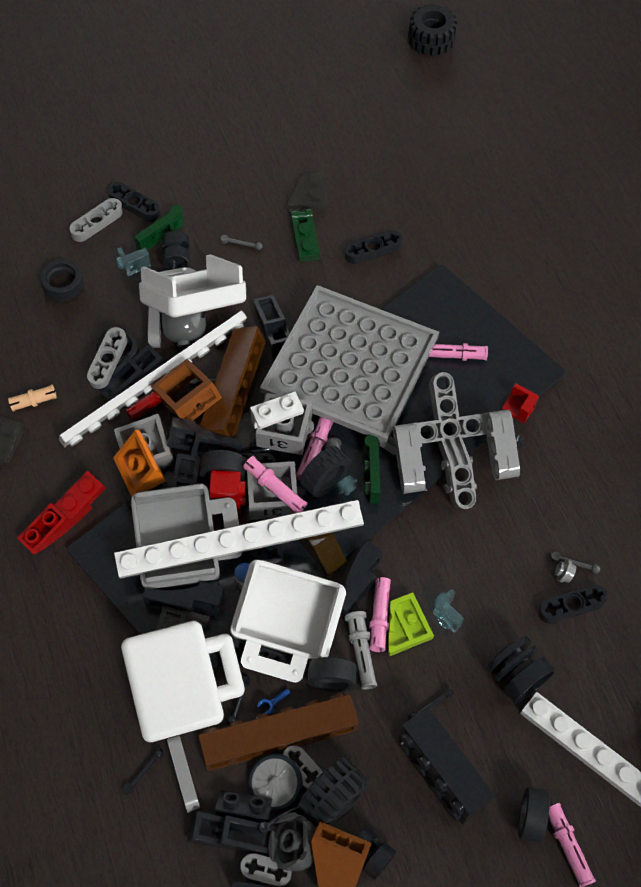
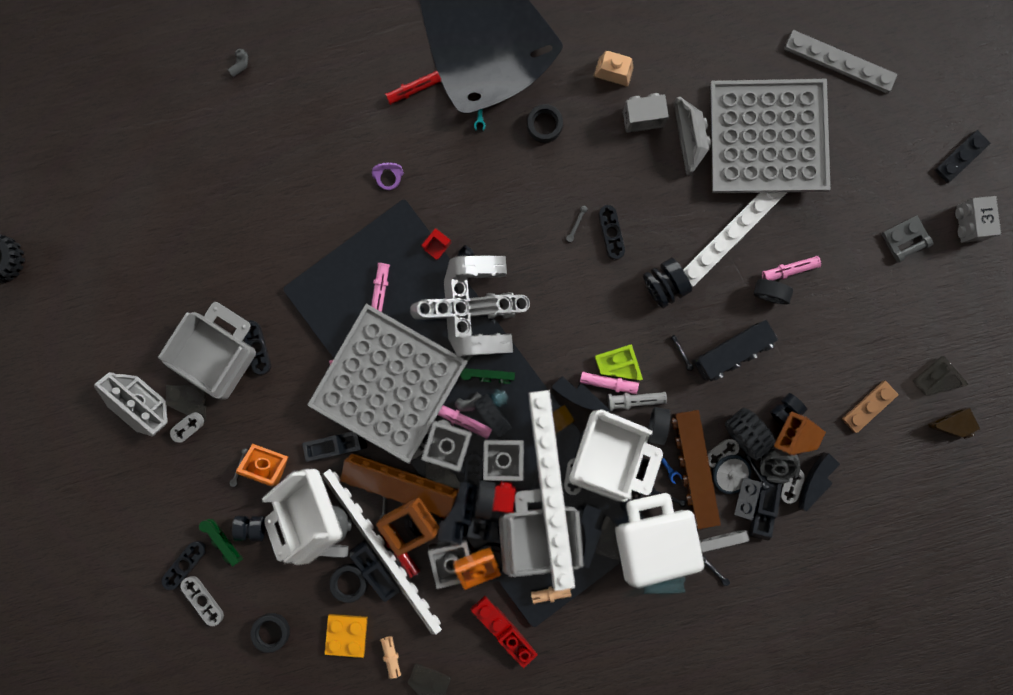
camera: 80 degrees left, 25 degrees up
(57, 354) = (346, 635): none -> light orange plate
(108, 368) = (378, 593): light grey beam -> none
(108, 562) = (549, 595): none -> light nougat pin
(123, 707) = (669, 586): none -> clear light blue hinge
(133, 262) = (257, 565): clear light blue bracket -> none
(241, 571) = (570, 488): blue piece -> none
(248, 255) = (263, 465): none -> orange slope
(267, 478) = (508, 458): bright pink pin -> none
(276, 410) = (450, 452): white bracket -> none
(278, 193) = (189, 430): none -> light grey beam
(304, 143) = (133, 402): none -> light grey wedge
(305, 235) = (237, 408): dark green plate -> none
(363, 200) = (208, 352): none -> light grey piece
(446, 614) = (616, 331): clear light blue bracket -> none
(565, 571) = (586, 233): light grey plate -> none
(593, 343) = (378, 170): none -> medium lavender piece

